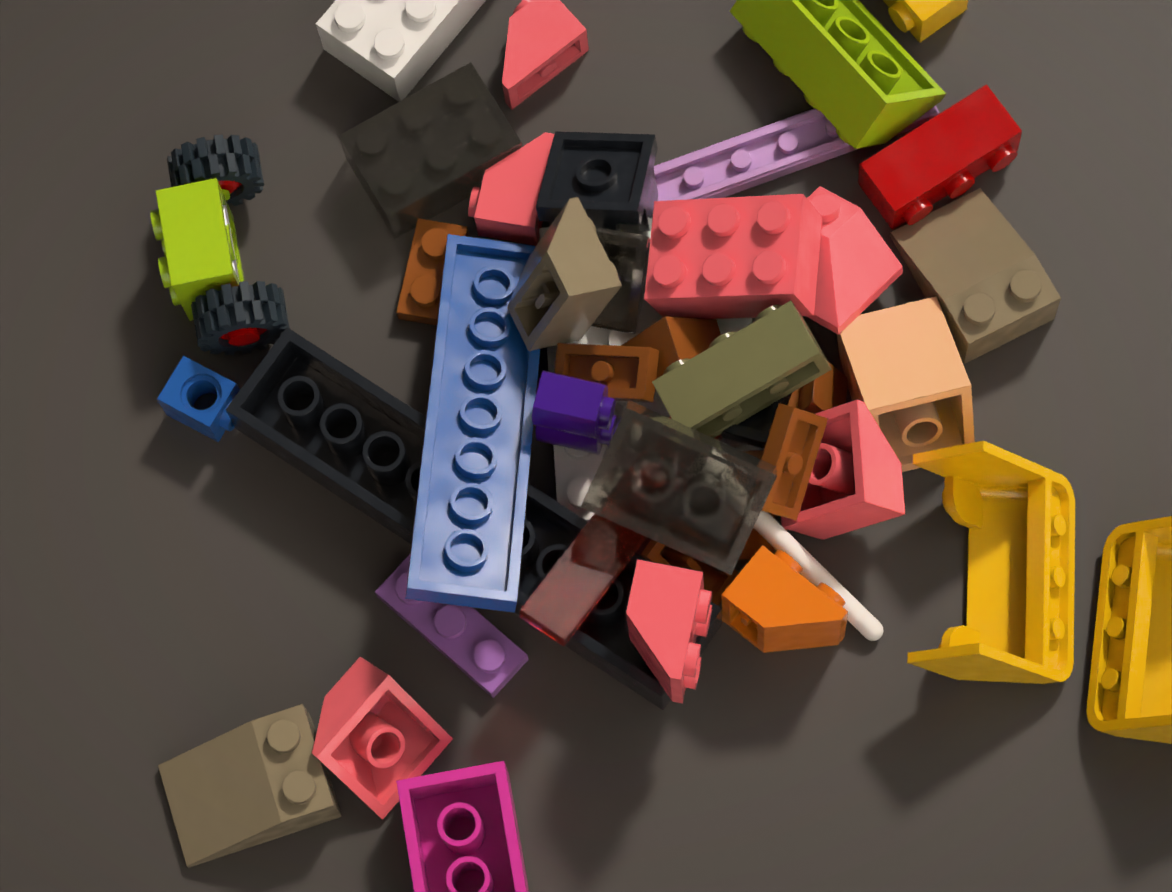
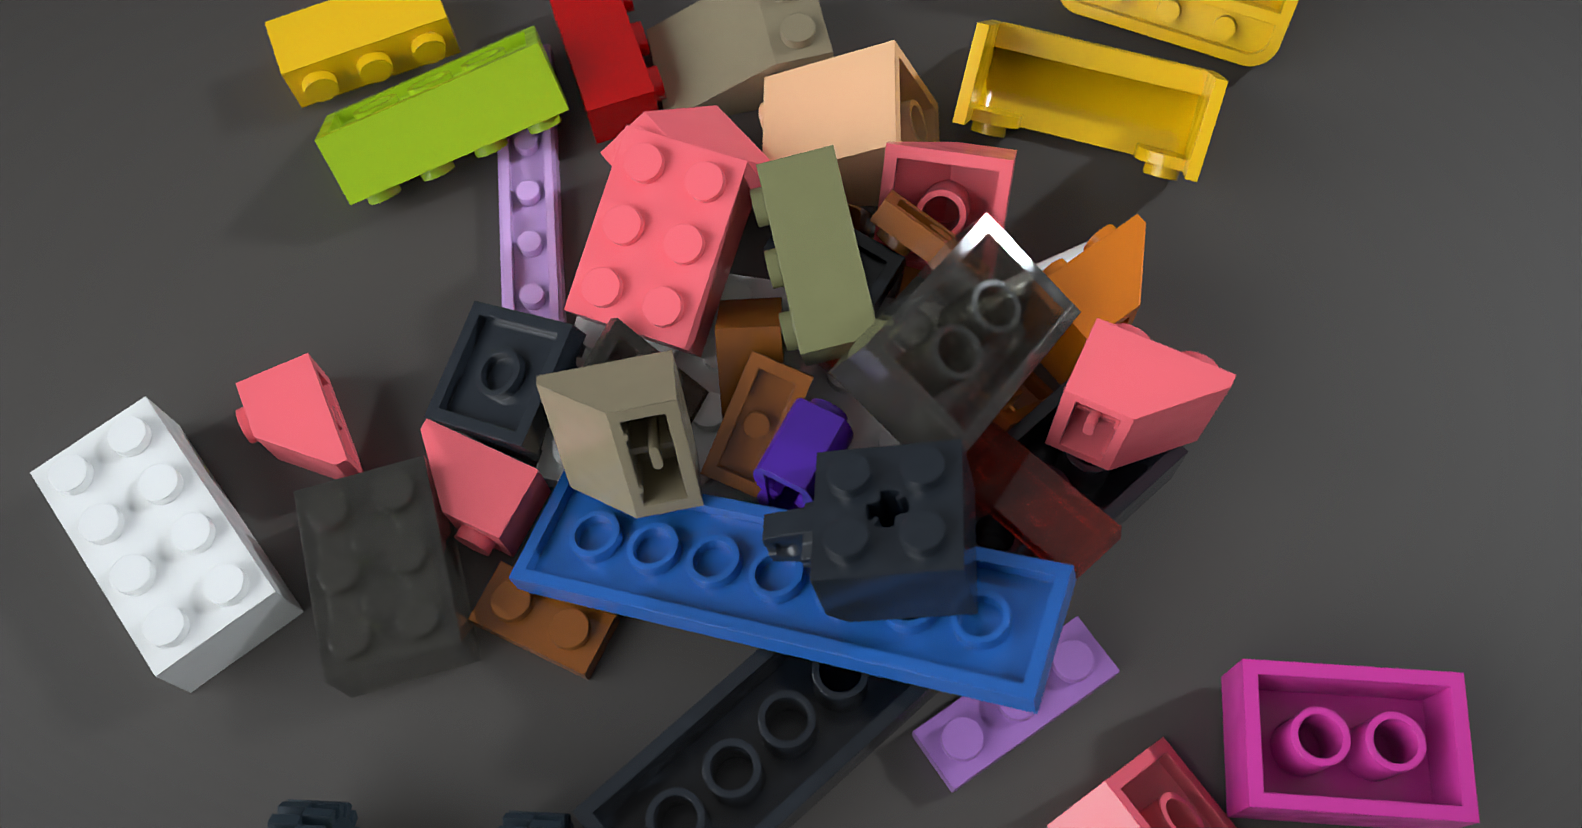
camera: 80 degrees left, 5 degrees down
(512, 471) = (886, 532): none -> black hinge

